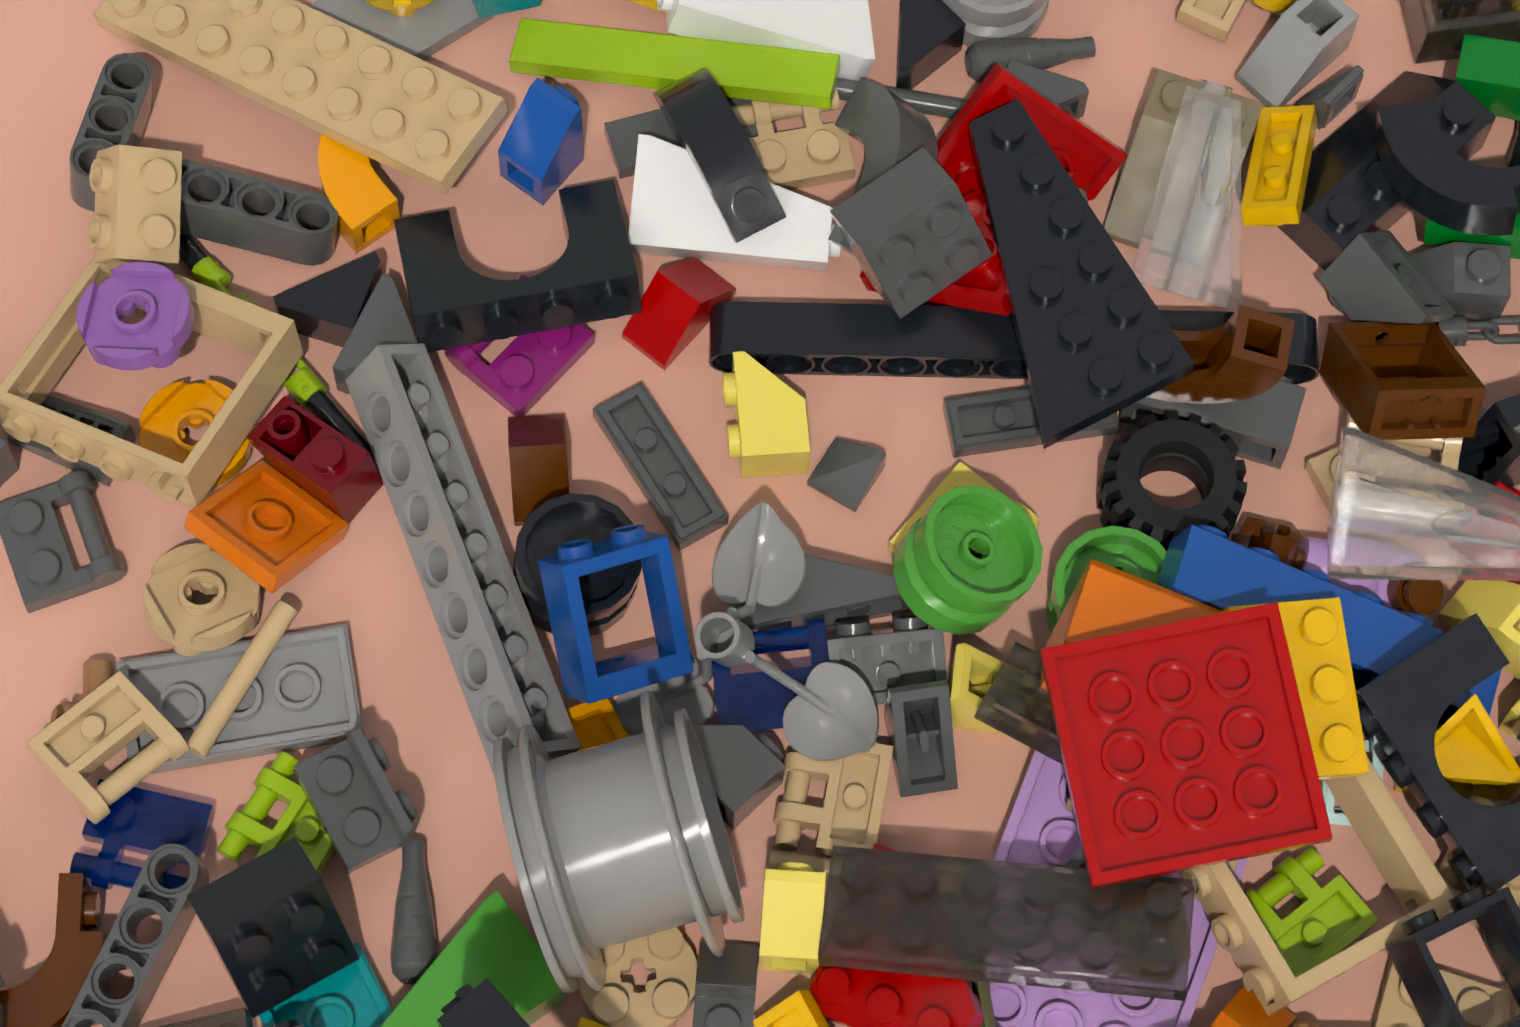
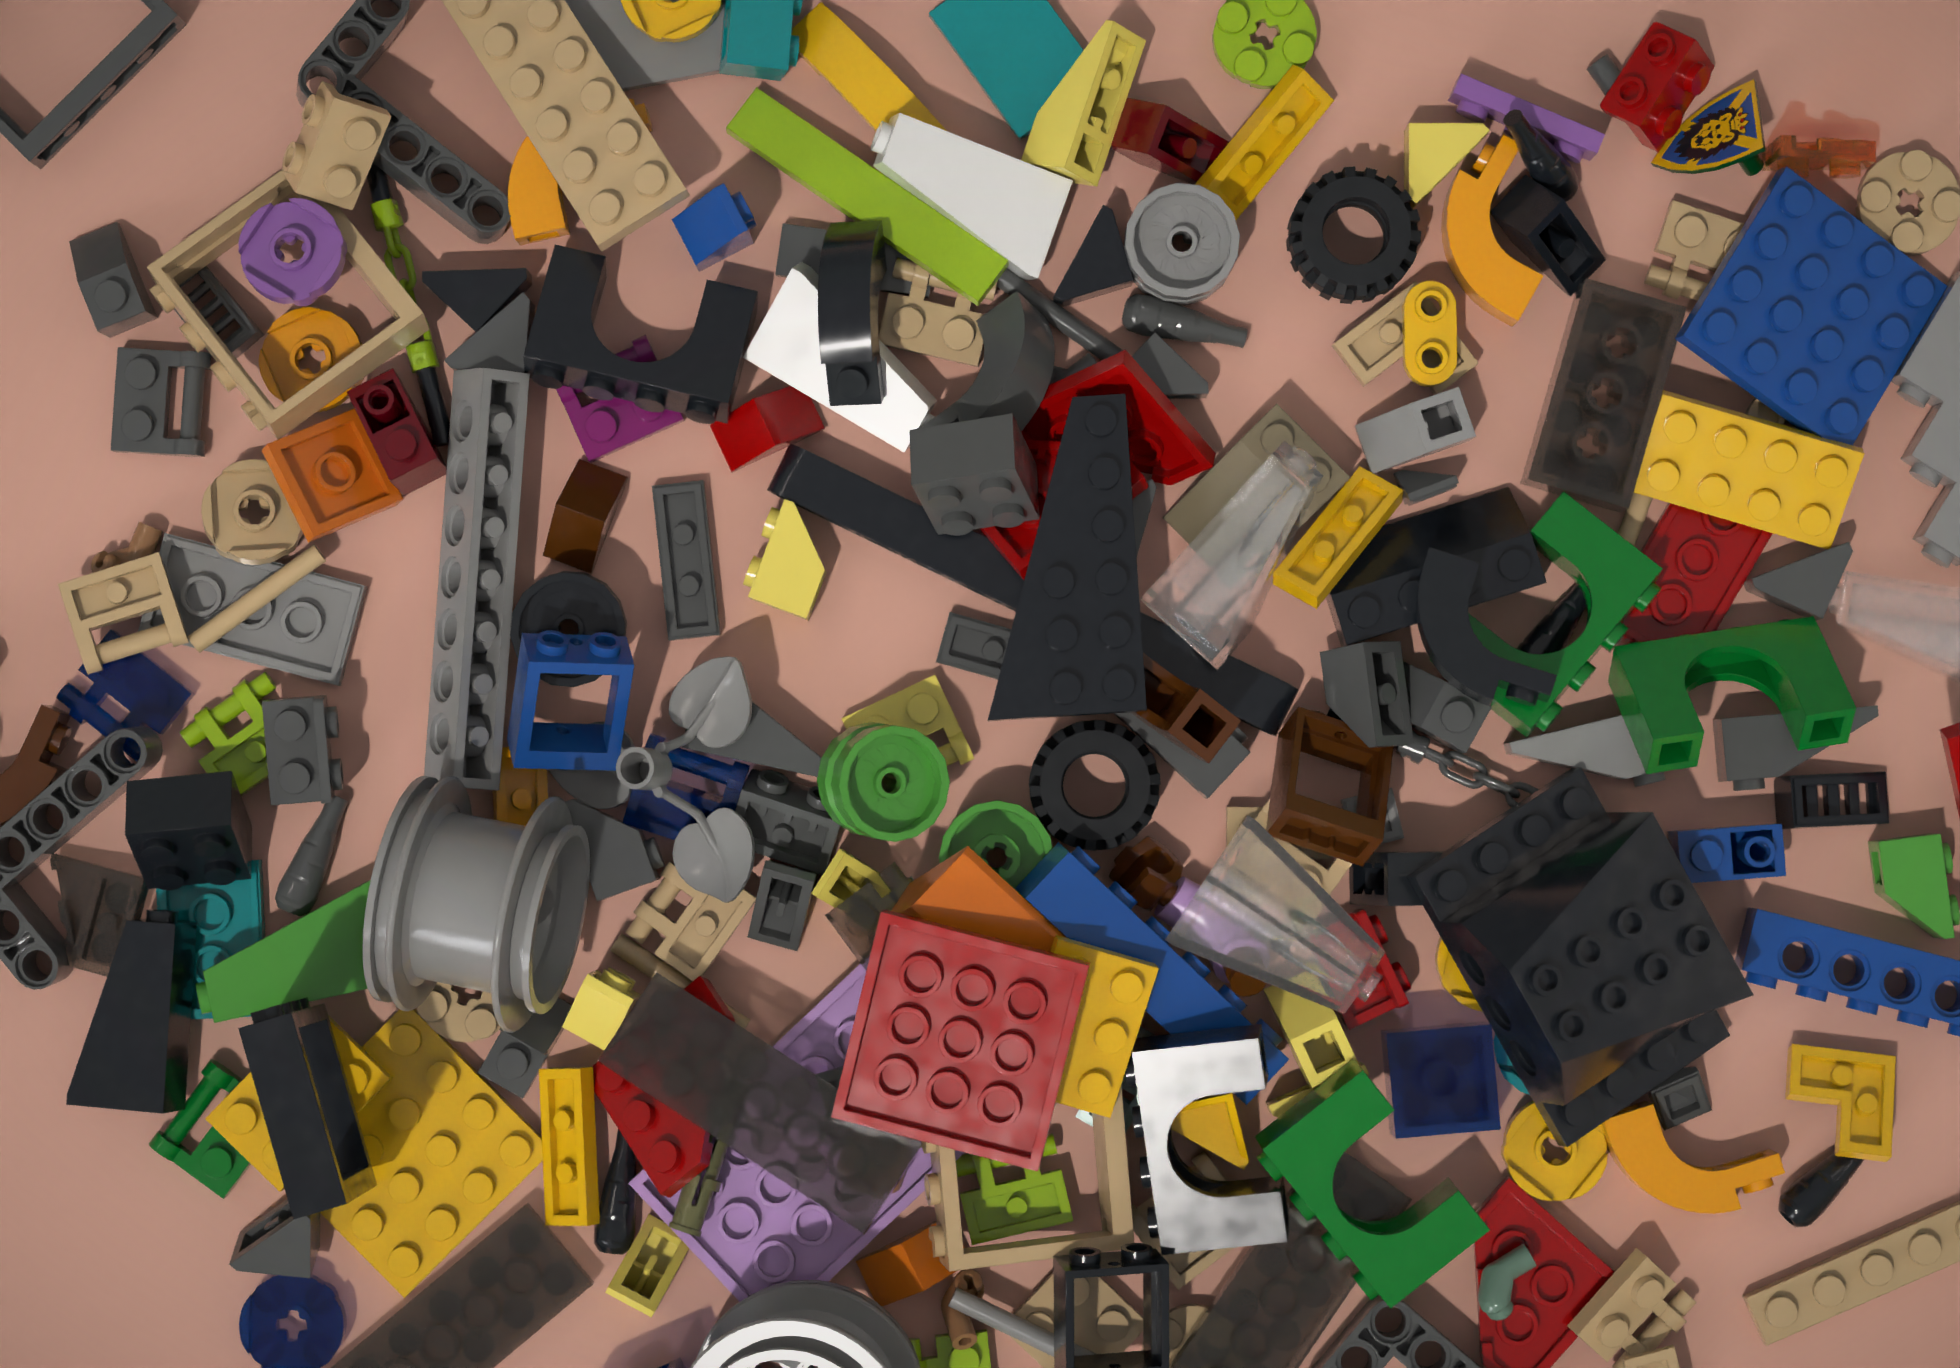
camera: 30 degrees right, 20 degrees up
(847, 472) = (837, 638): dark grey slope -> none

